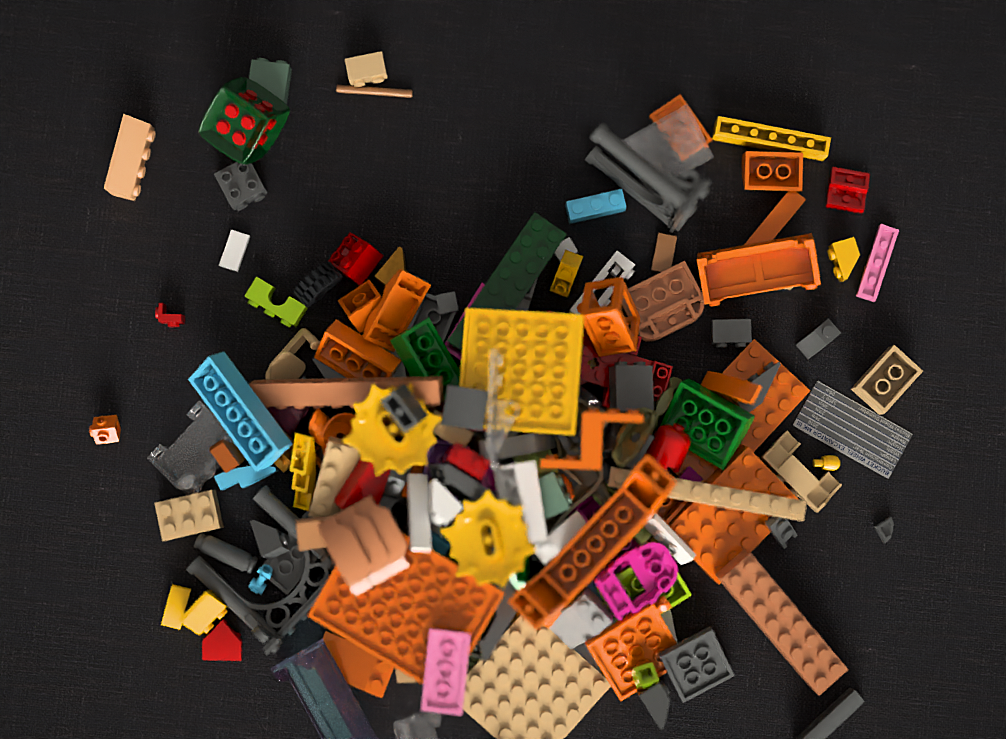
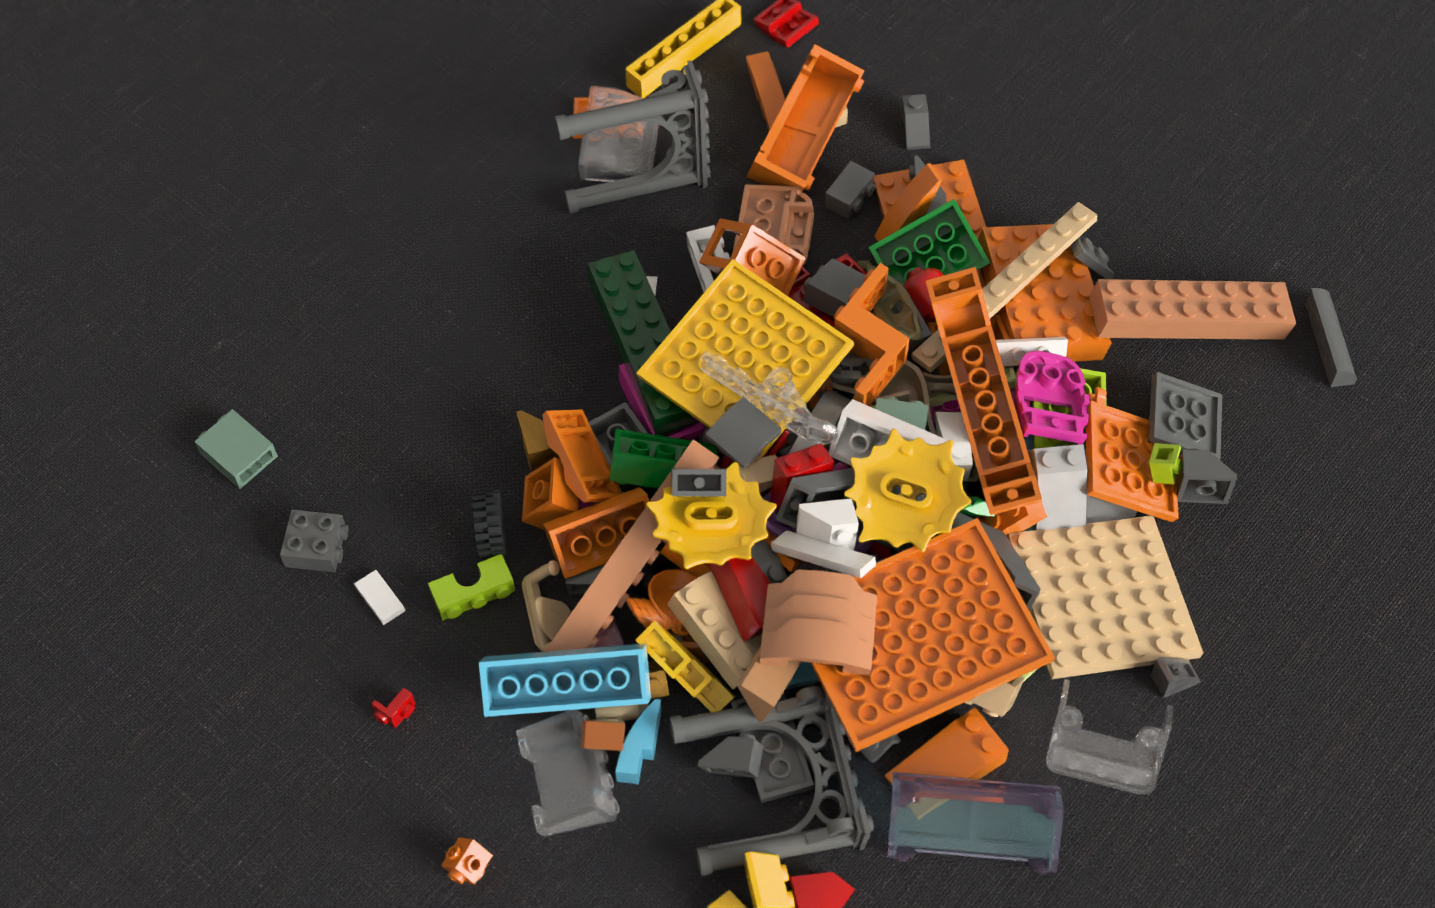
camera: 50 degrees left, 25 degrees down
(129, 158) = (187, 633): light nougat slope -> none
(189, 515) = (639, 833): tan brick -> none
(225, 552) = (713, 822): dark grey axle -> none
(243, 120) = (253, 475): dark green piece -> none
(258, 585) = (779, 812): medium azure bar -> none
(355, 258) = (490, 471): red slope -> none
(366, 69) = (302, 344): tan brick -> none
(374, 91) = (331, 357): medium nougat bar -> none
(446, 671) = (1025, 631): bright pink plate -> none
(447, 303) = (614, 408): dark grey tile -> none
(566, 273) = (671, 293): yellow slope -> none
(595, 206) = (625, 225): medium azure brick -> none
(663, 252) = (720, 202): medium nougat tile -> none
(772, 171) = (719, 56): orange slope -> none
(797, 476) = (1037, 211): tan bracket -> none
(827, 463) = (1050, 187): yellow cylinder -> none
(844, 256) = (854, 52): yellow slope -> none
(852, 429) = (1030, 151): sticker -> none
(877, 262) = (878, 36): bright pink plate -> none
(885, 529) = (1156, 181): dark grey tile -> none
(886, 380) = (1002, 88): tan brick -> none

